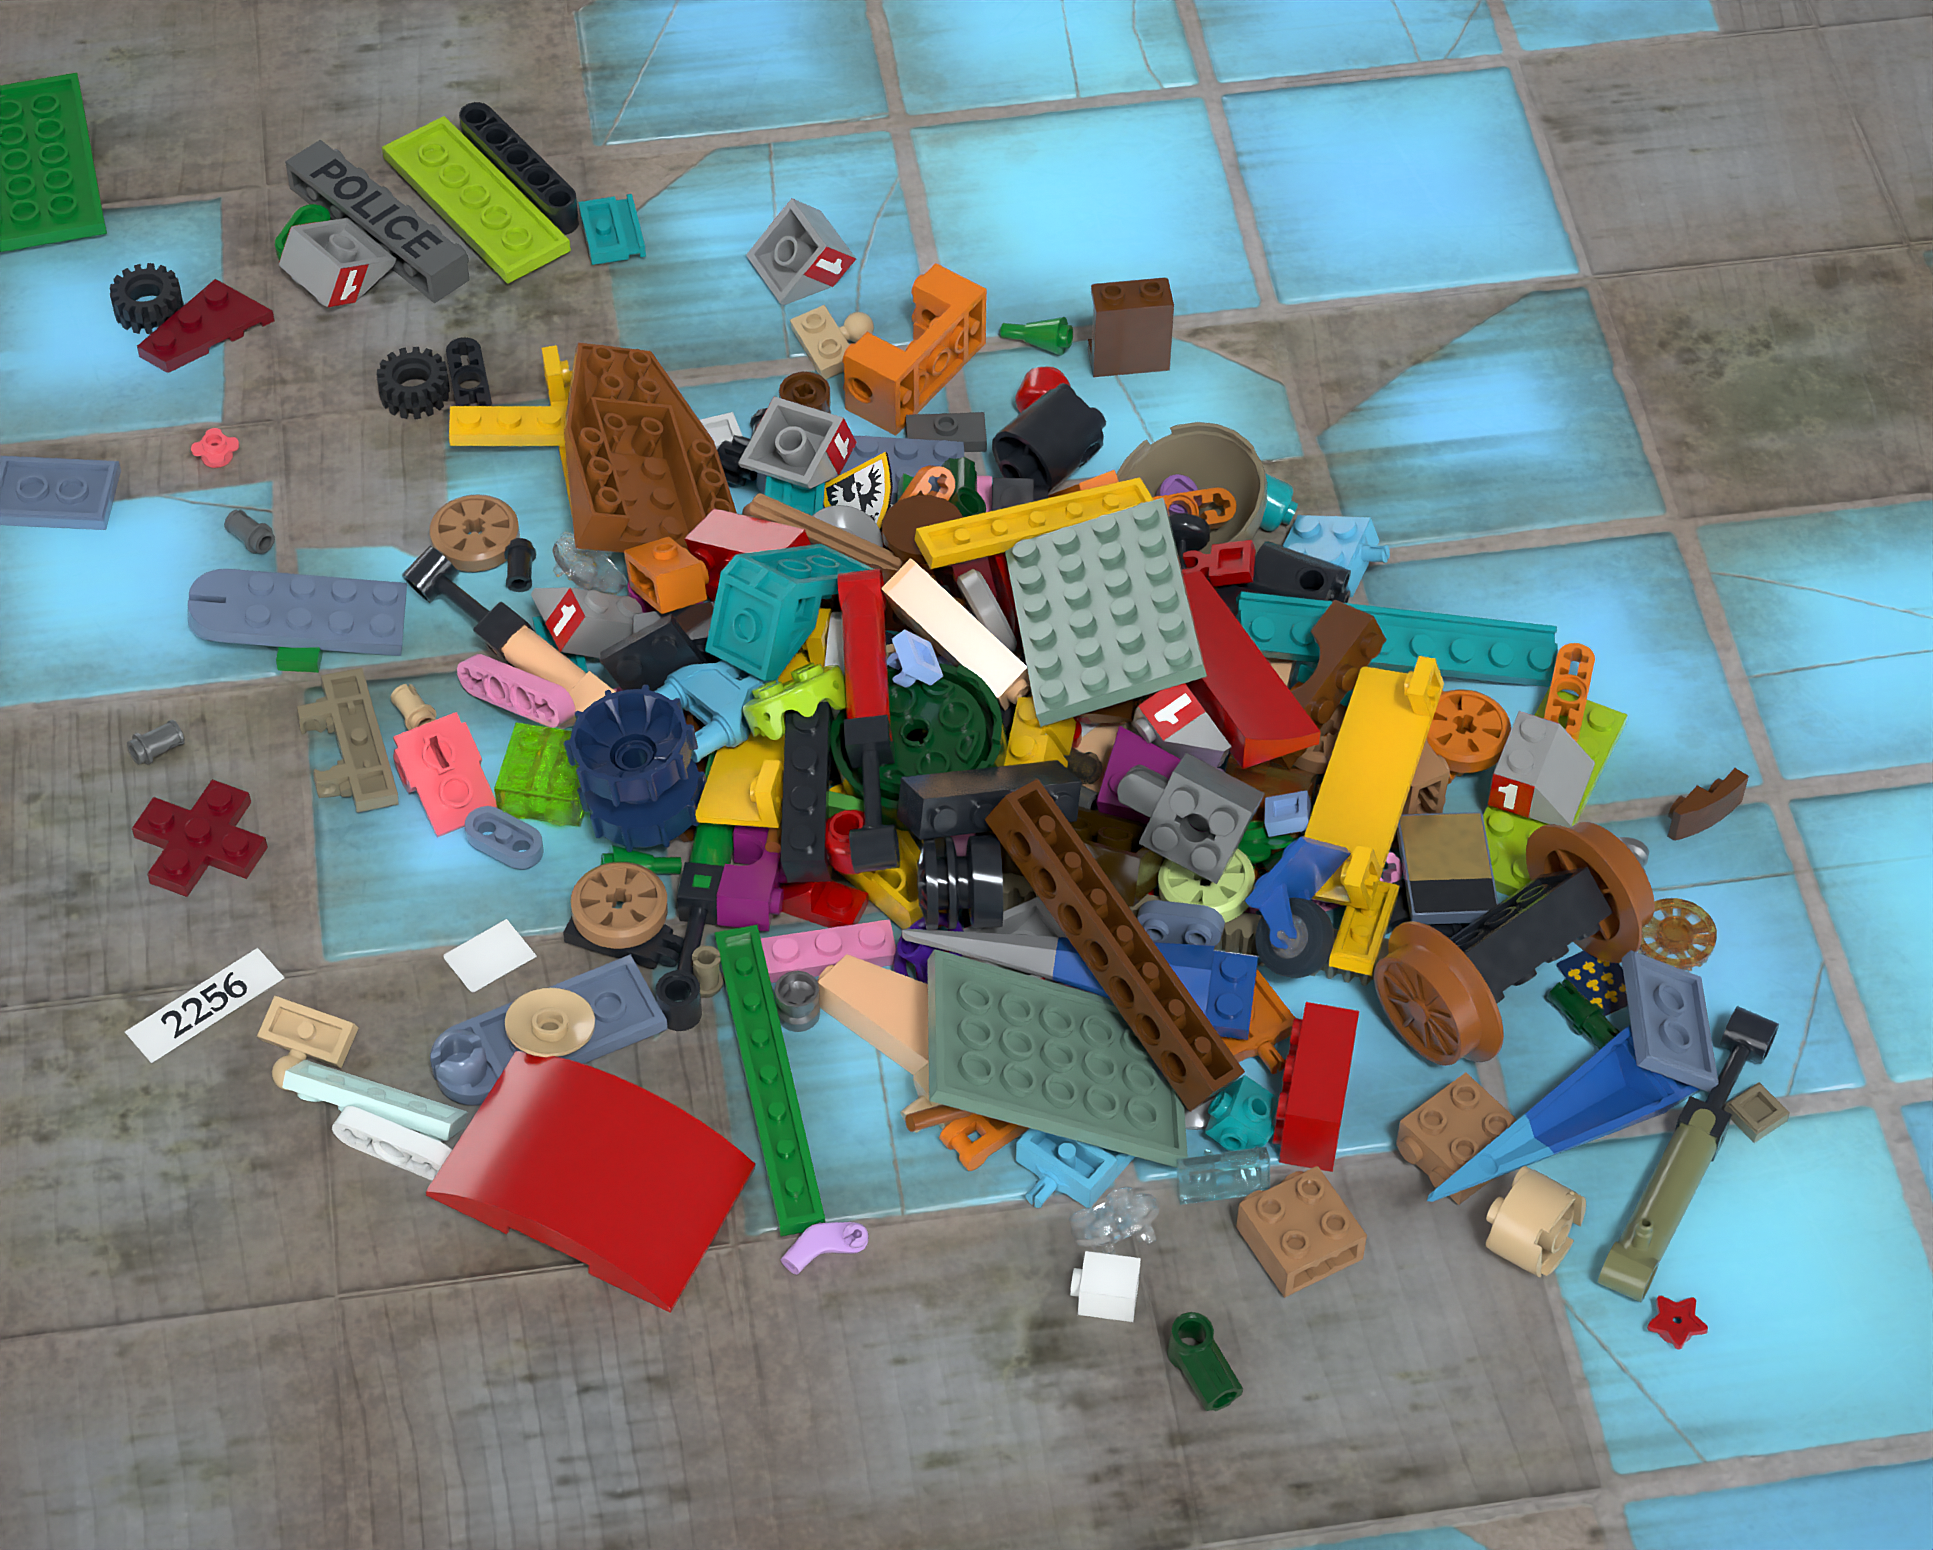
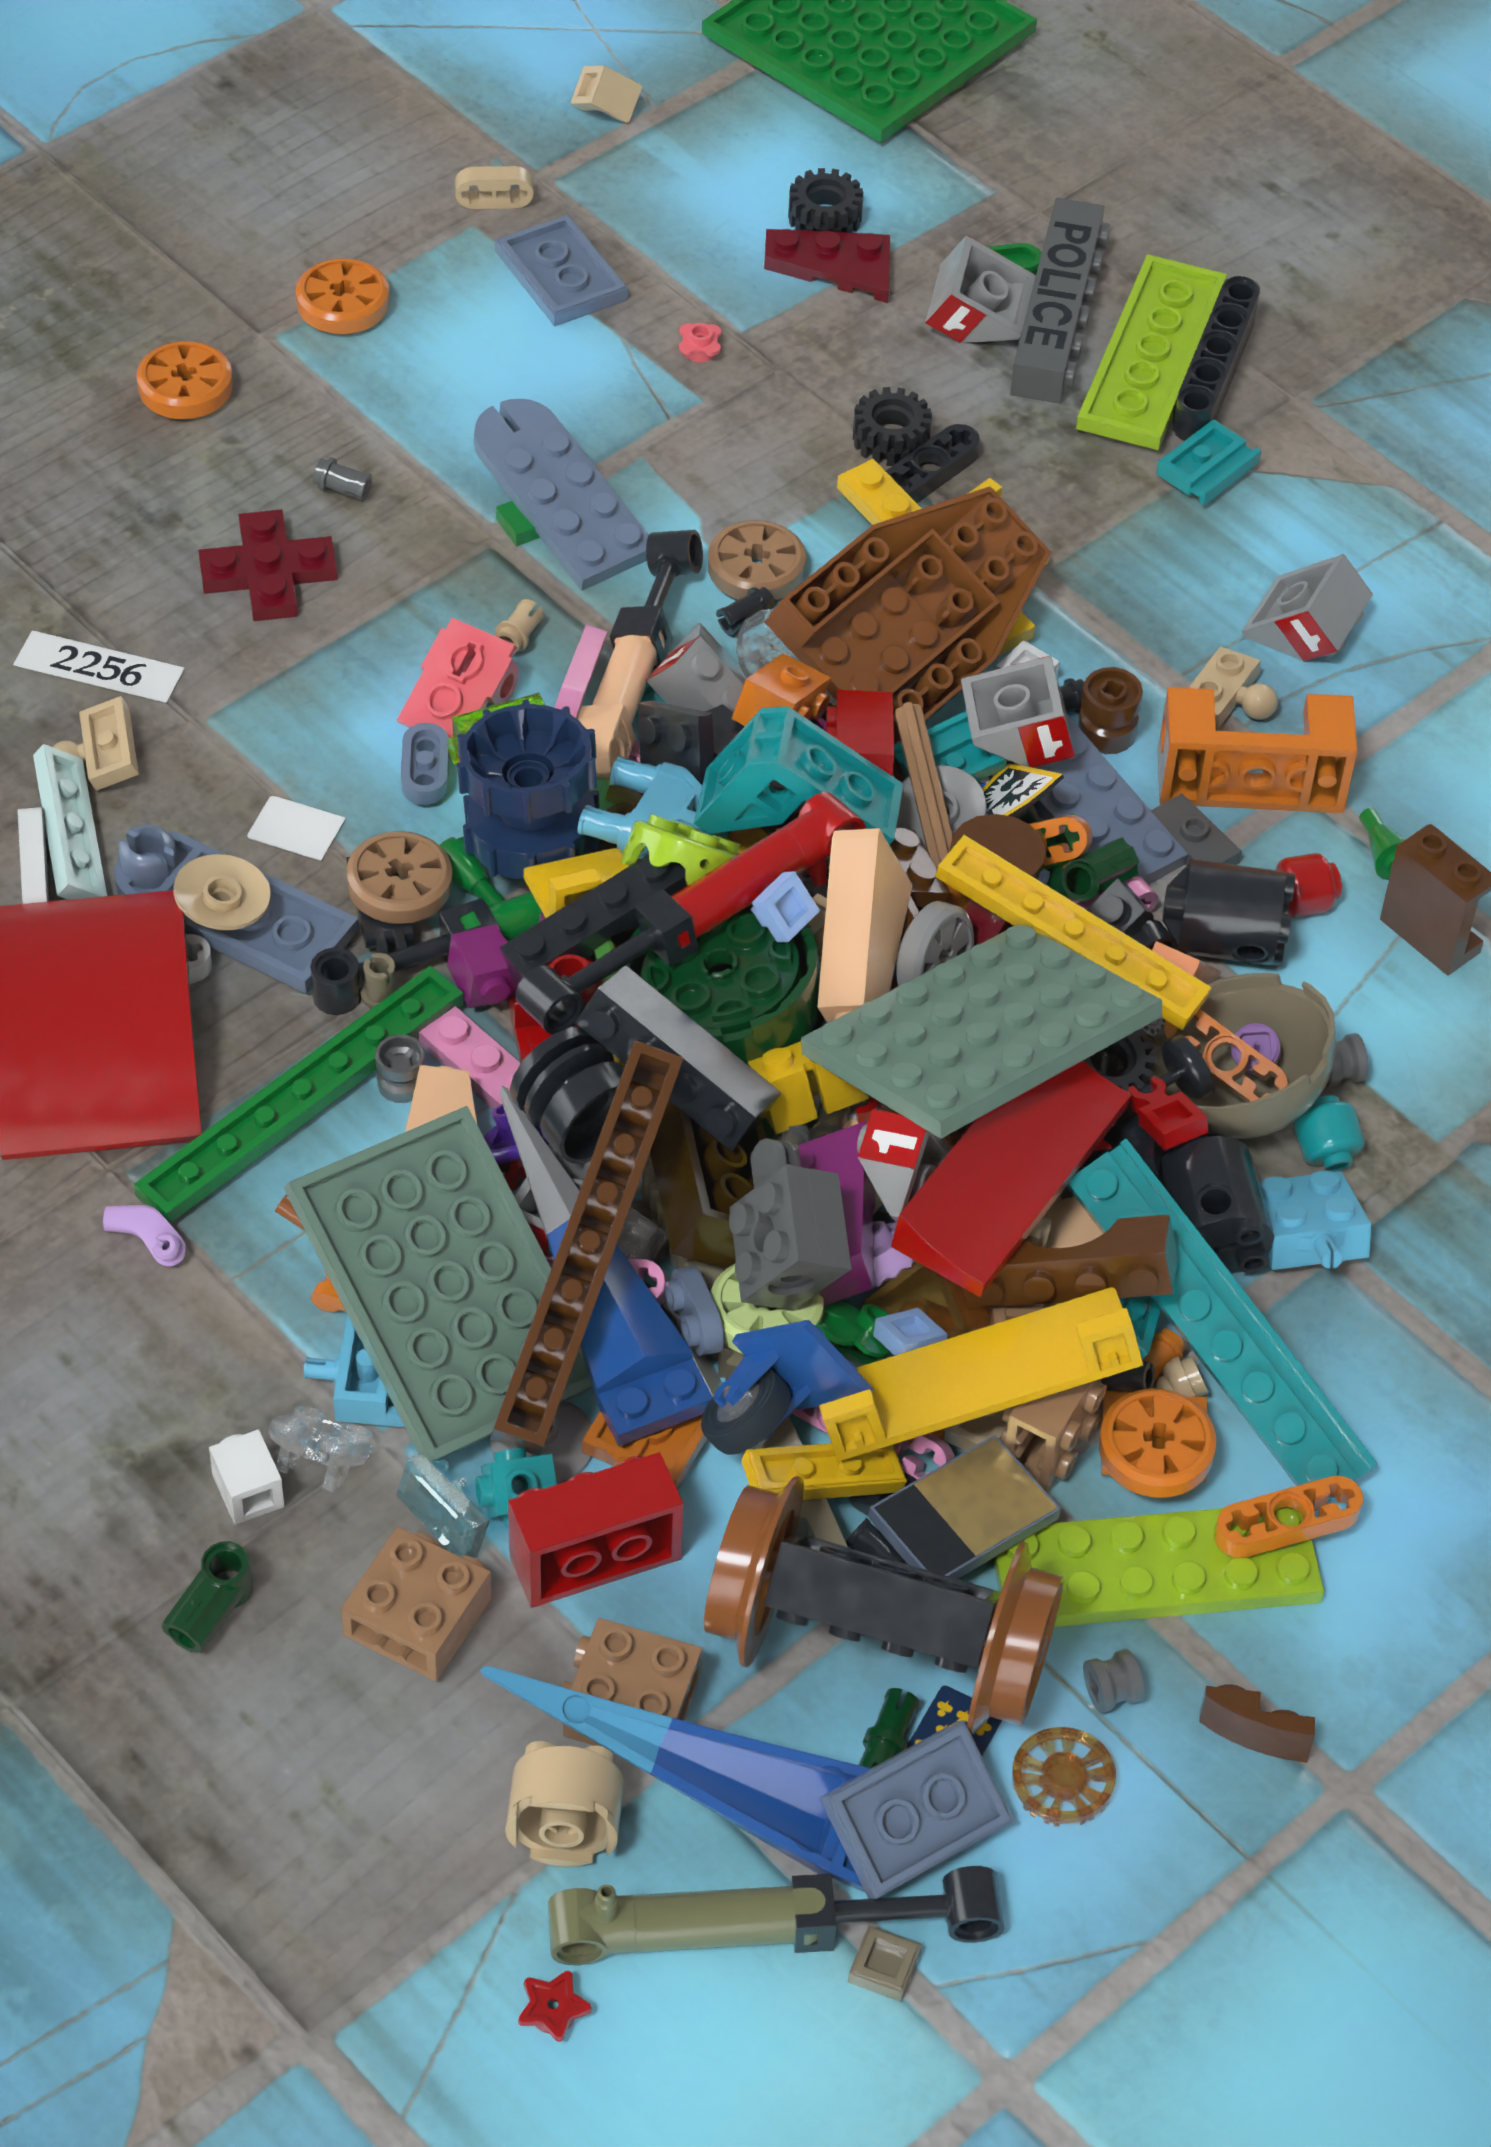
camera: 55 degrees right, 0 degrees up
(256, 536) = (622, 418): dark grey pin -> none
(364, 762) = (472, 590): dark tan hinge -> none
(1540, 772) = (1153, 1535): light grey slope -> none

